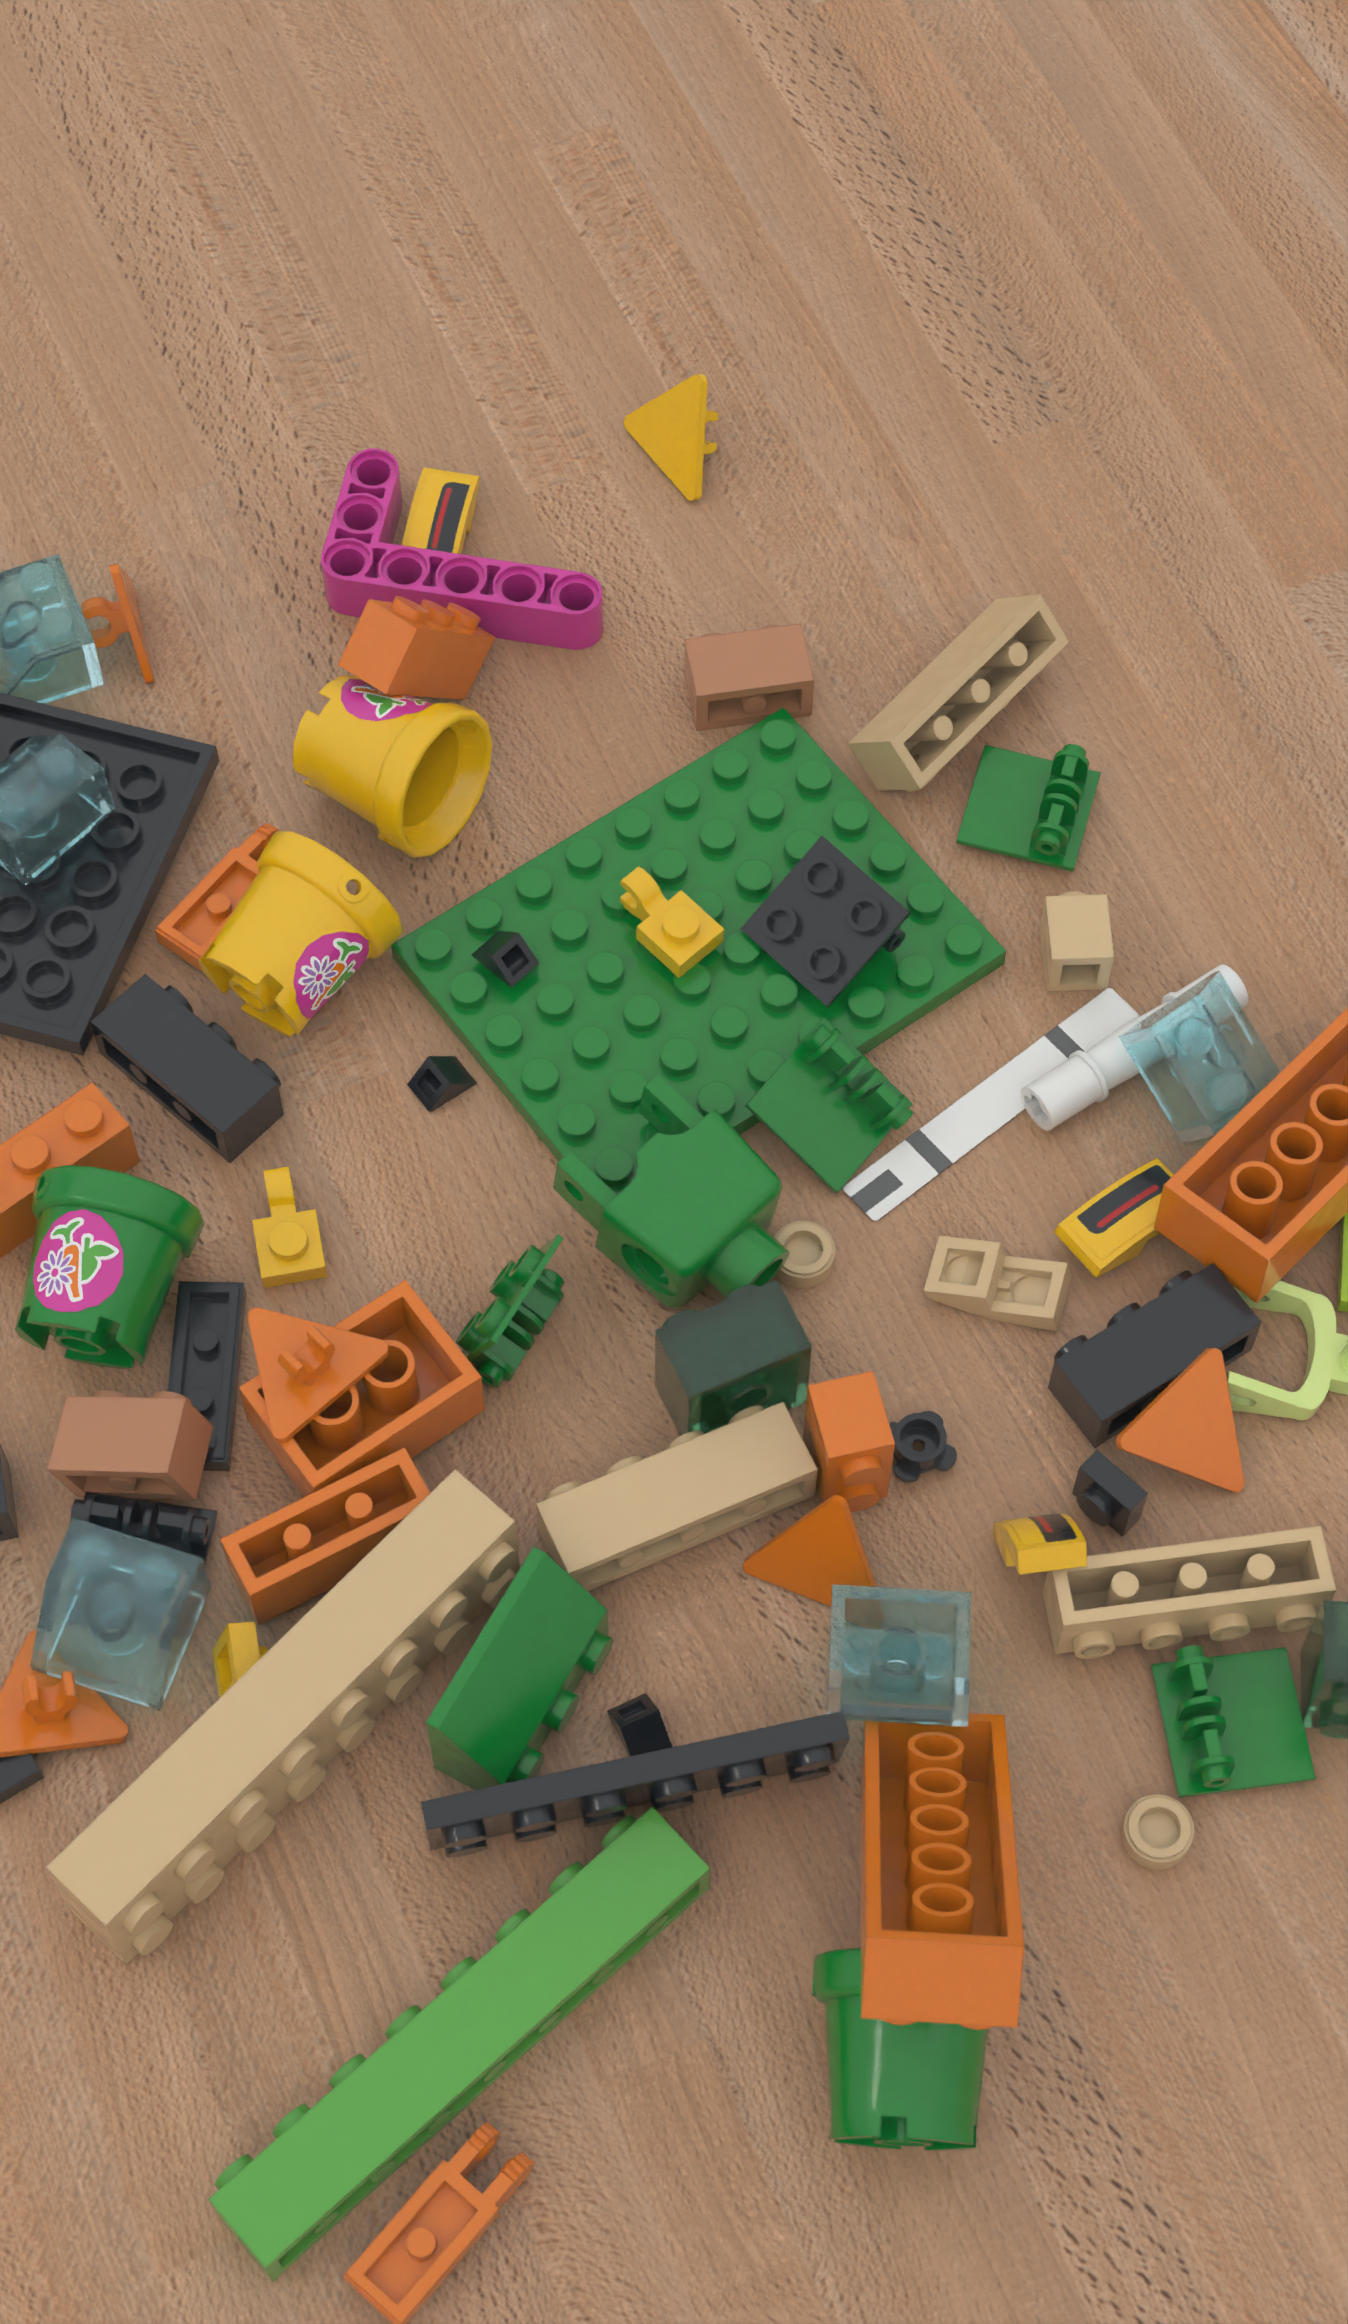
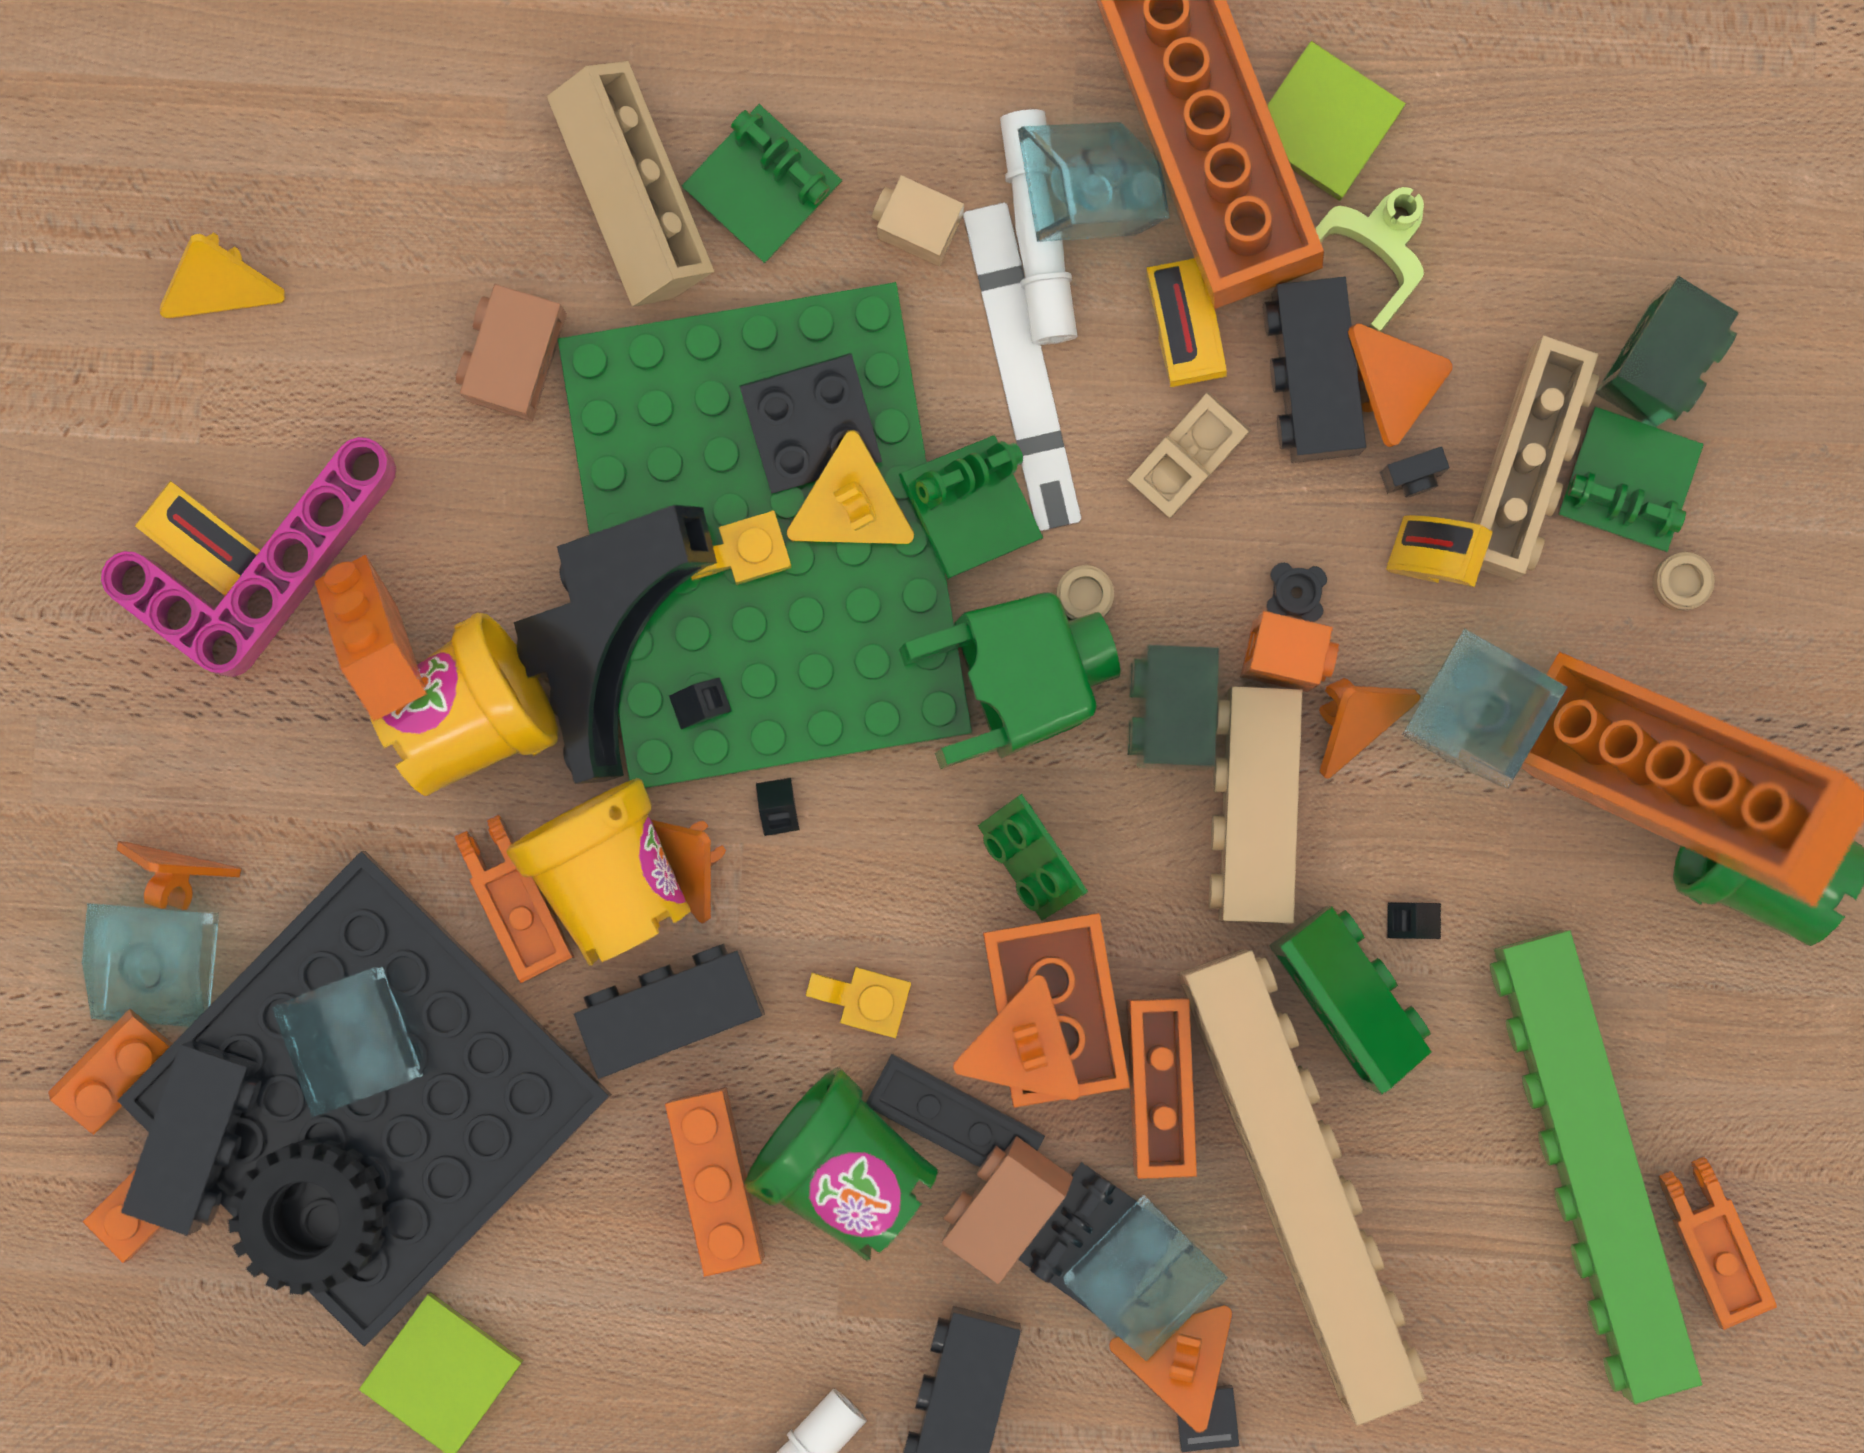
camera: 60 degrees left, 25 degrees up
(235, 1653) = (1228, 1202): yellow plate -> none
(348, 1015) = (691, 862): none -> orange piece
(513, 834) = (585, 645): none -> black arch
(658, 1777) = (1478, 954): black plate -> none
(771, 991) = (851, 502): none -> yellow piece

